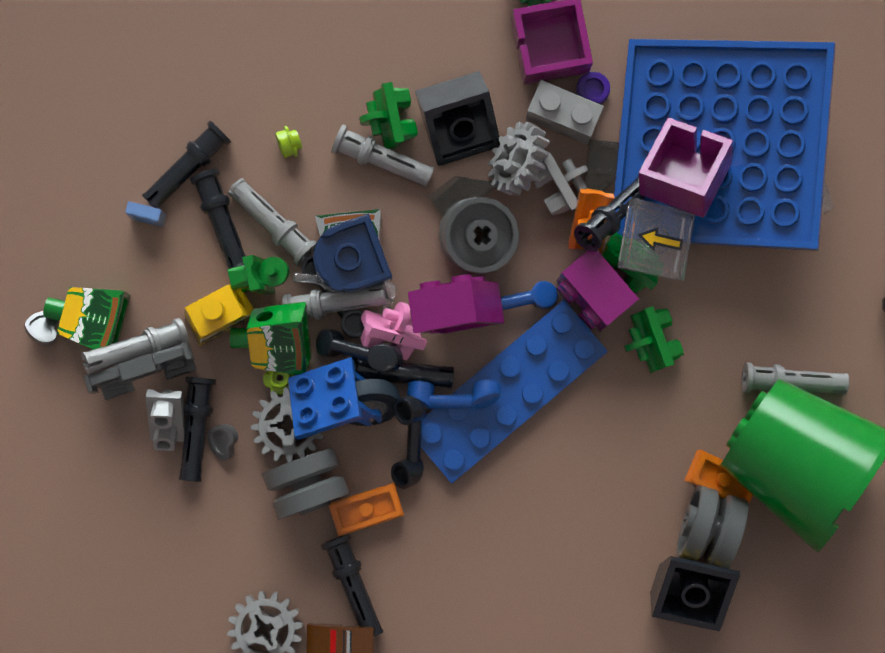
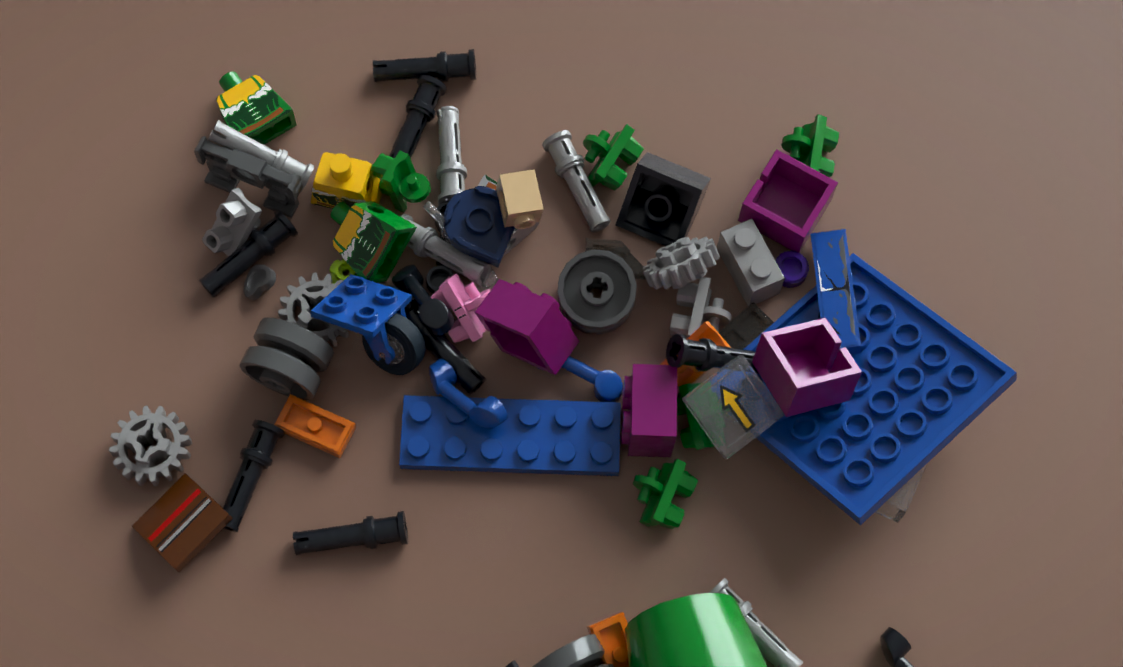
camera: 45 degrees right, 15 degrees down
(41, 329) = (207, 90): piece -> none
(145, 214) = (363, 75): medium blue tile -> none
(288, 142) = (517, 113): lime plate -> none
(367, 218) = (519, 199): none -> tan brick
(409, 471) = (376, 426): black bar -> none
(477, 549) = (369, 533): none -> black pin
(644, 80) = (836, 286): none -> blue tile

